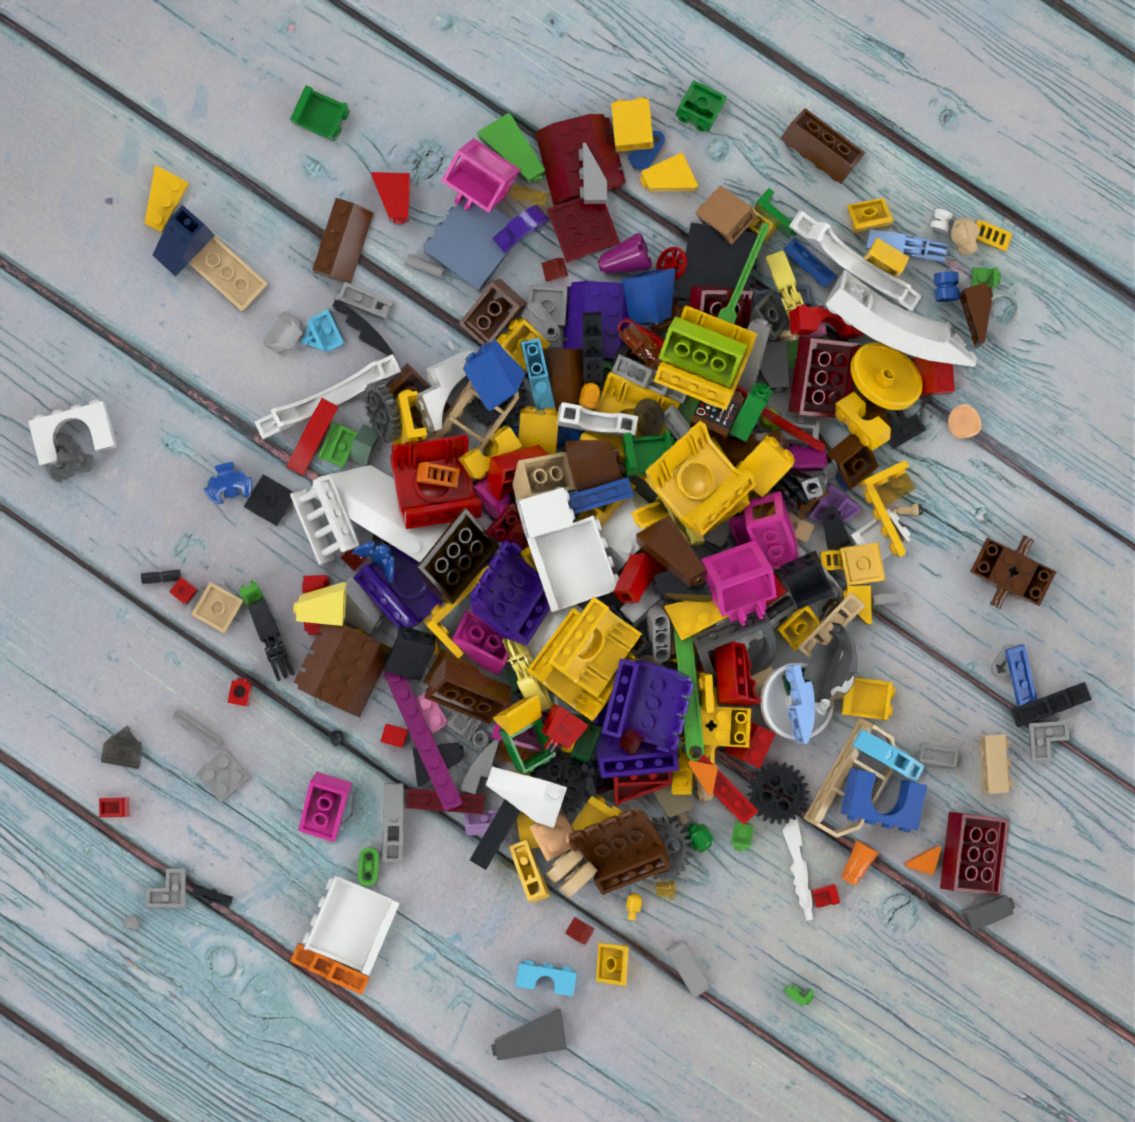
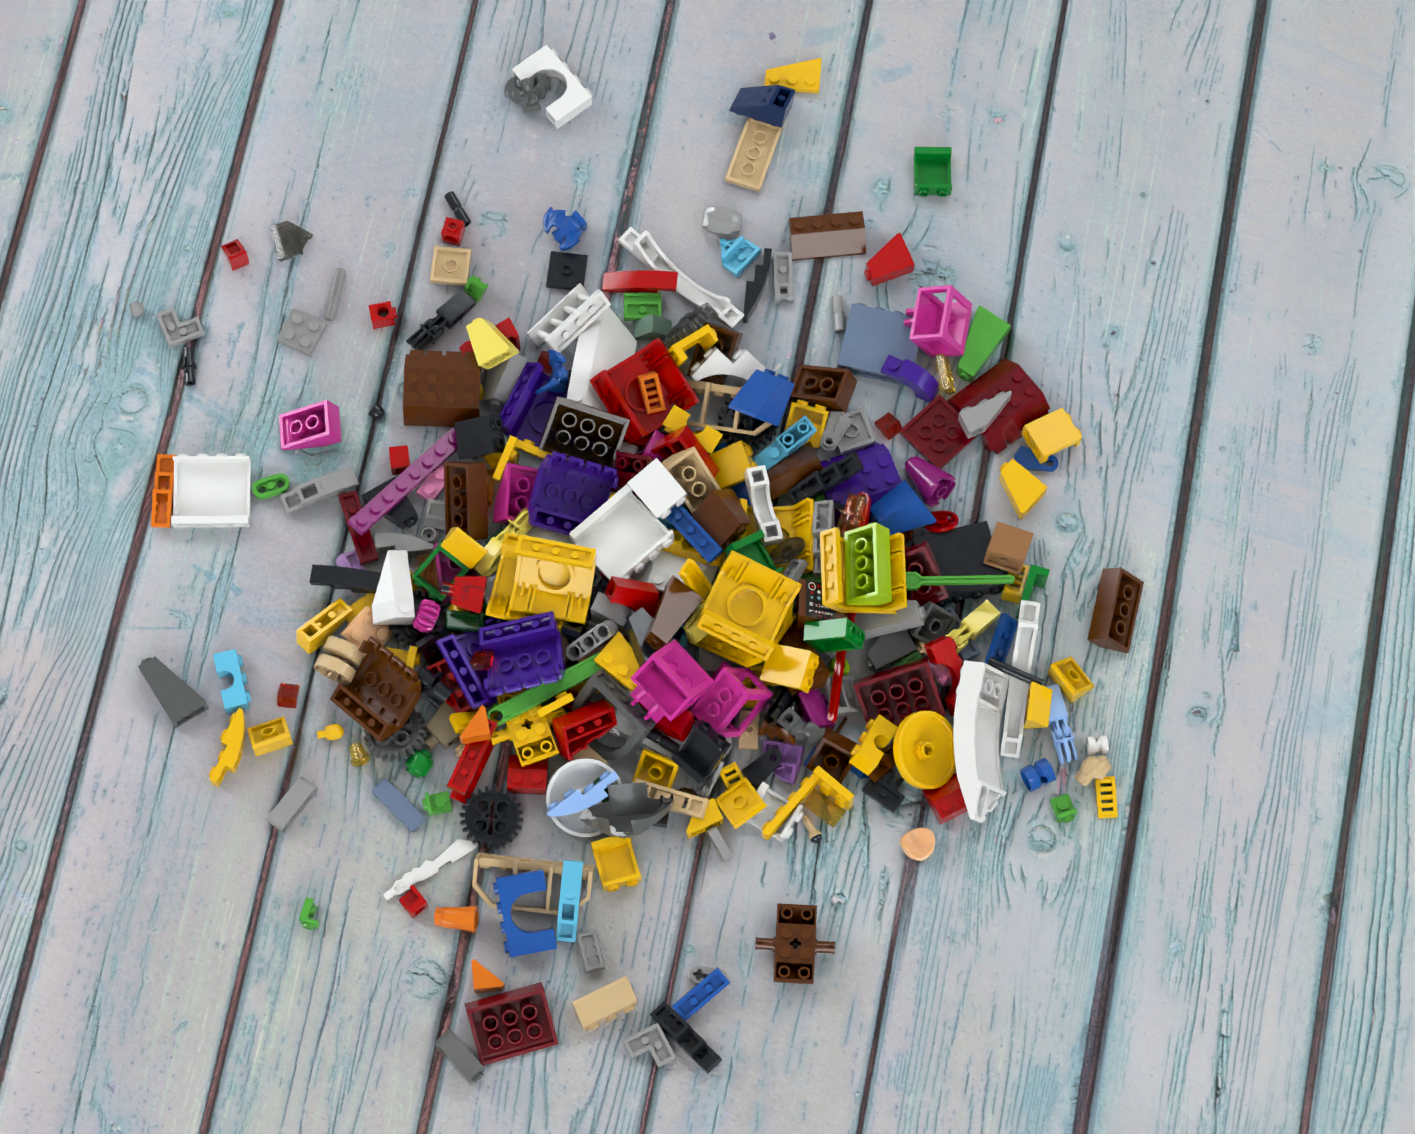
camera: 65 degrees right, 15 degrees down
(568, 775) = (426, 616): none -> dark pink gear
(589, 396) = (783, 495): light orange arm -> none
(604, 998) = (233, 740): none -> yellow slope
(640, 797) = (432, 687): none -> black pin
(700, 106) = (1098, 488): green plate -> none
(728, 872) = (398, 805): none -> sand blue tile
(847, 263) = (1013, 671): none -> black piece
(976, 306) = (1029, 809): reddish brown slope -> none

